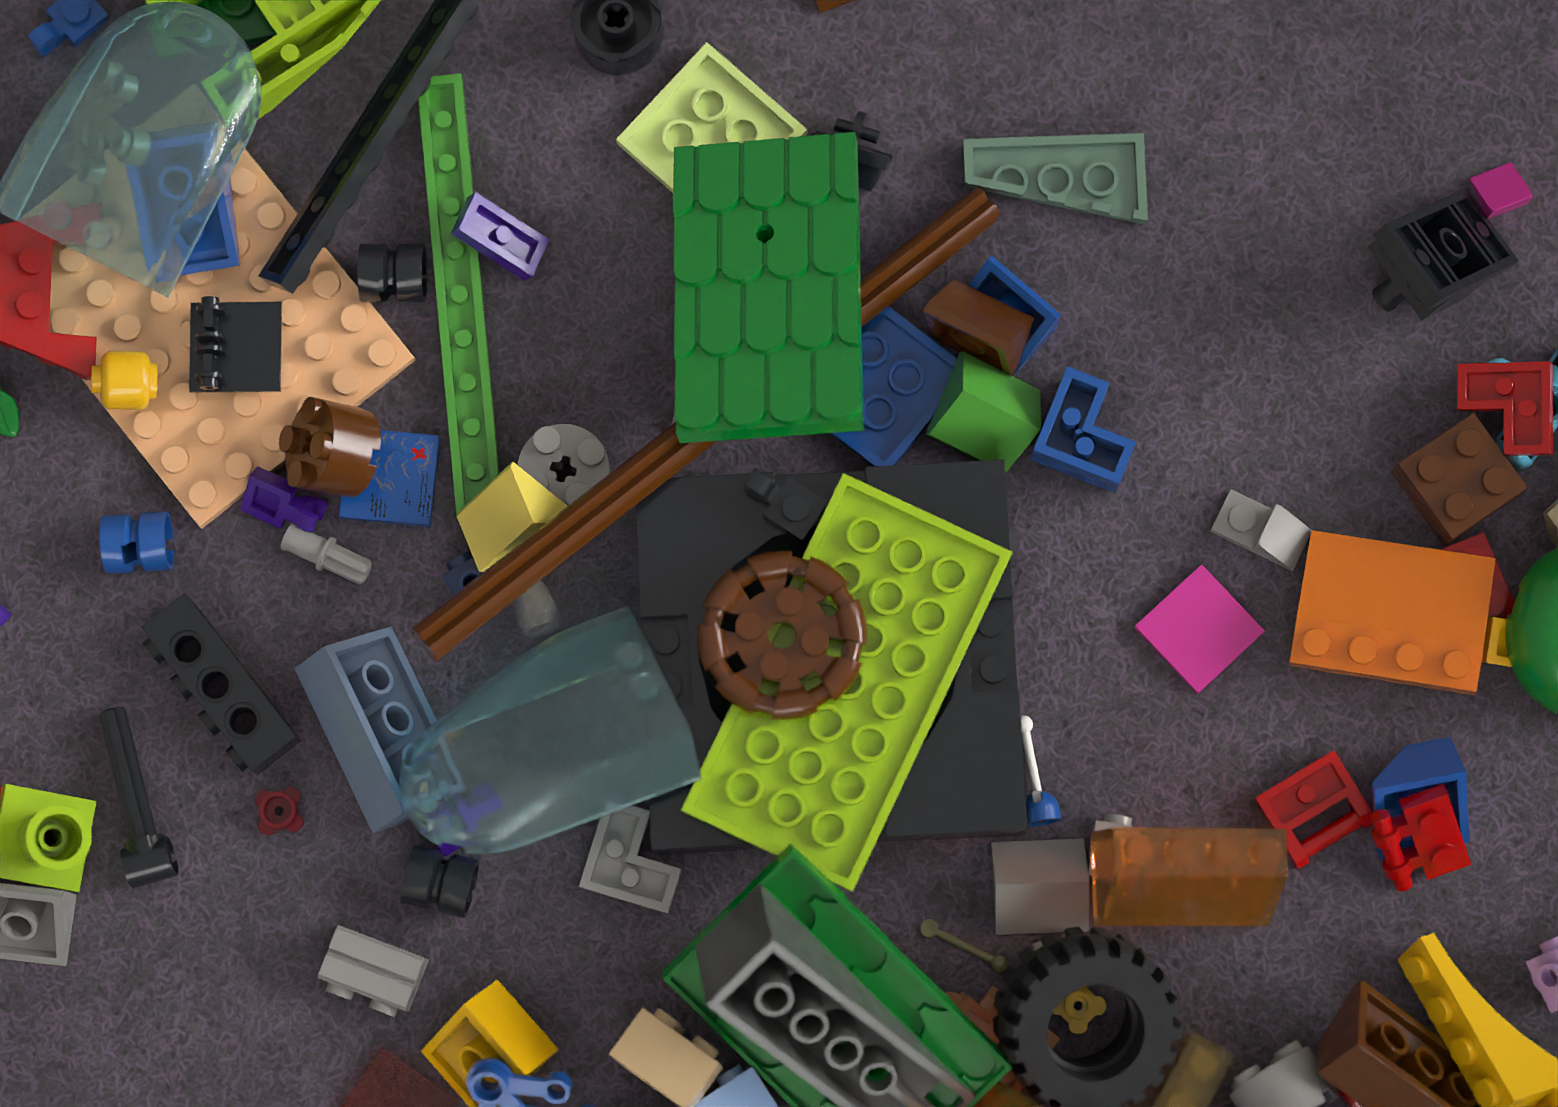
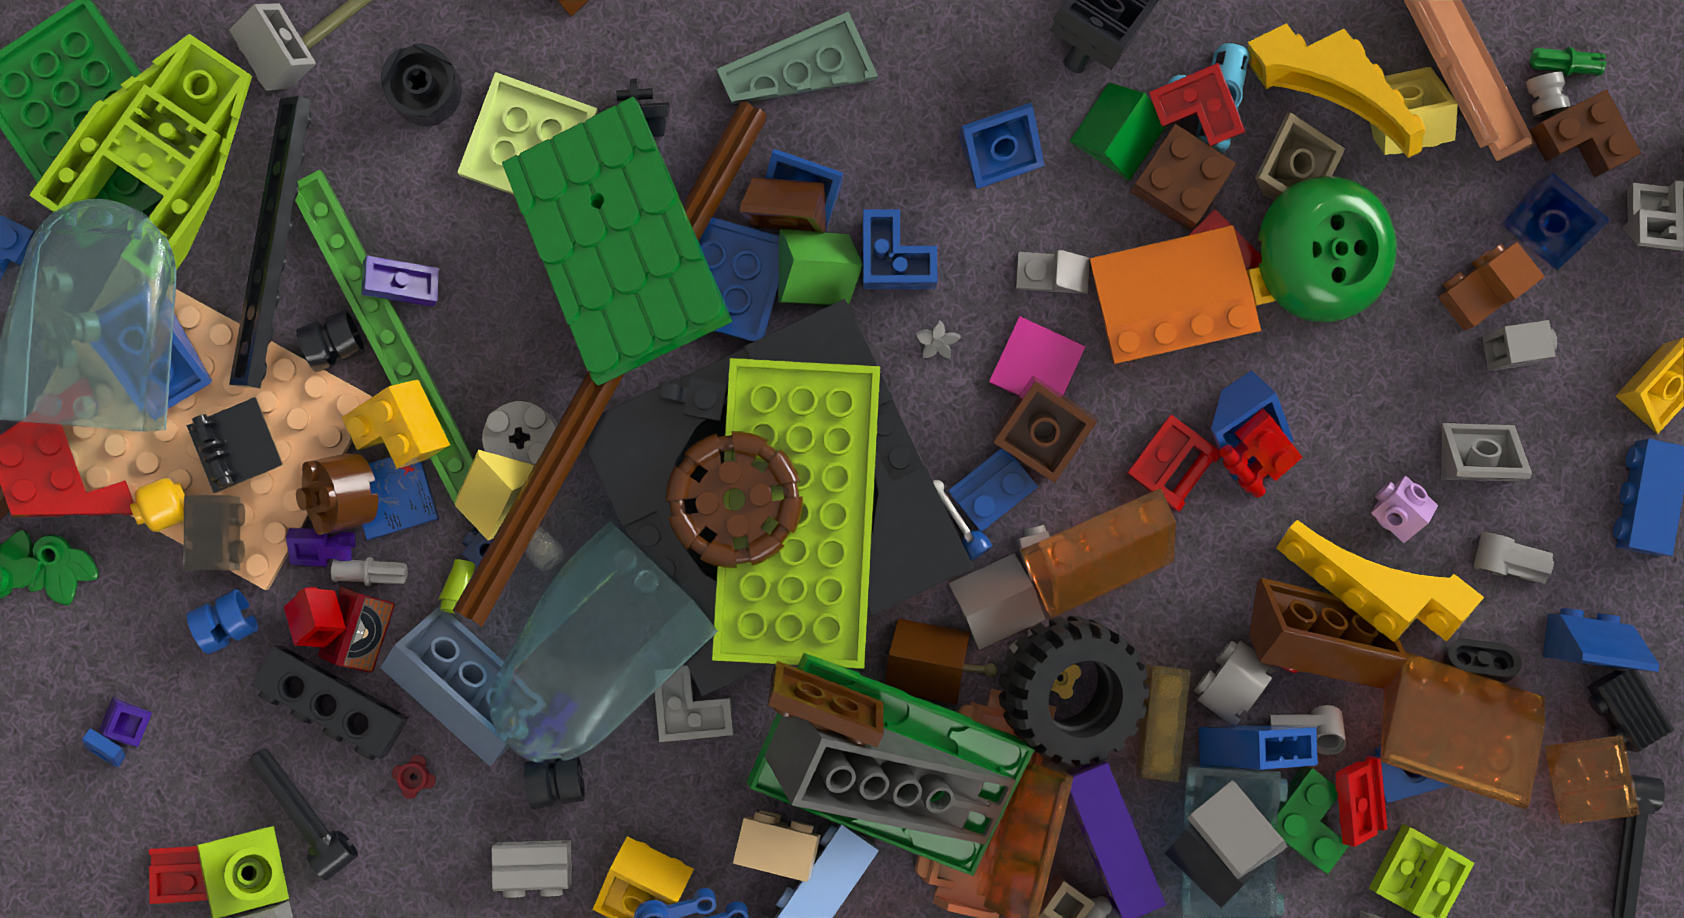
camera: 30 degrees left, 5 degrees up
(171, 436) = (213, 533): none -> clear smoke brick
(244, 580) = (314, 617): none -> red brick
(283, 614) = (365, 630): none -> panel
(417, 609) = (455, 584): none -> lime cone
(437, 395) = (401, 420): none -> yellow brick
(792, 909) = (826, 705): none -> reddish brown plate
(931, 920) = (927, 660): none -> reddish brown slope
(1088, 753) = (992, 489): none -> blue plate
(1093, 554) = (937, 341): none -> light grey plant
(1176, 705) = (1044, 429): none -> reddish brown brick
(1260, 358) = (1002, 145): none -> blue slope
(1407, 395) = (1119, 129): none -> green slope

